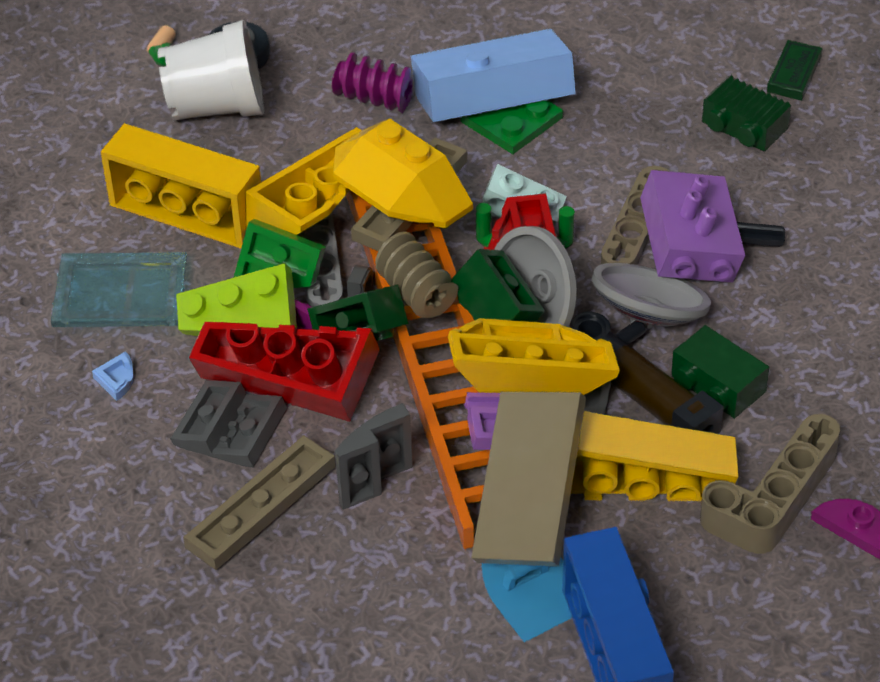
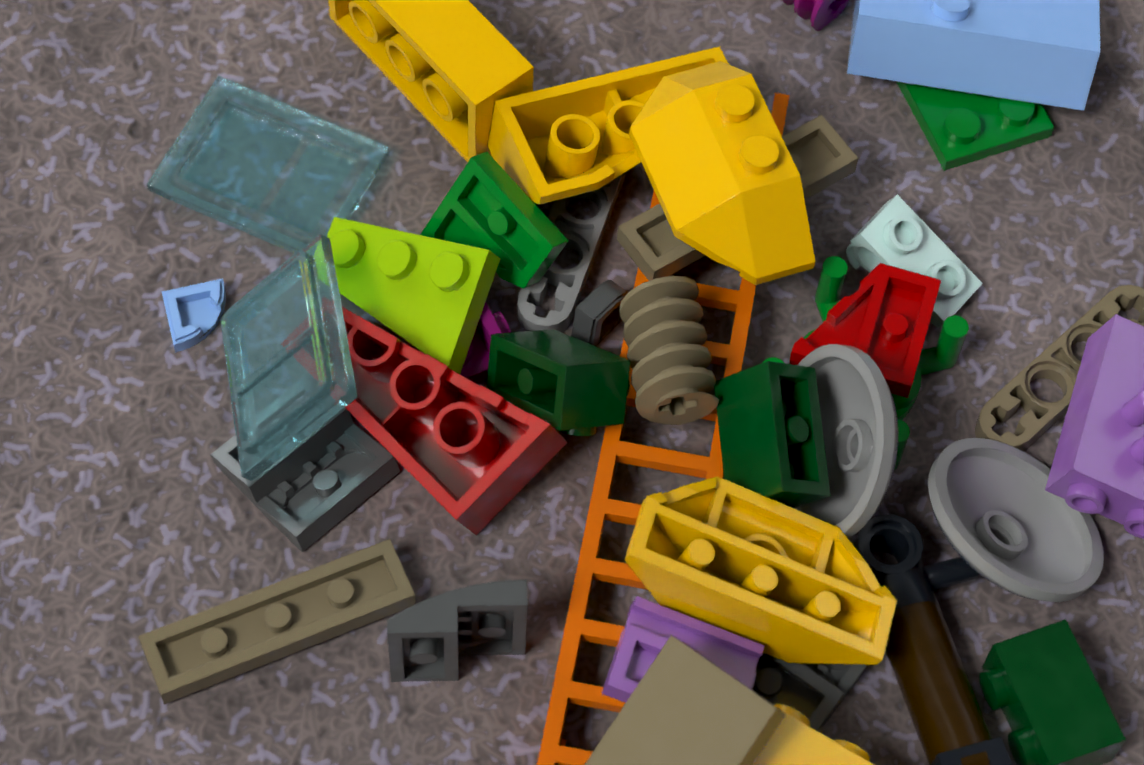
camera: 20 degrees right, 15 degrees up
(193, 363) = (287, 357): none -> clear light blue piece

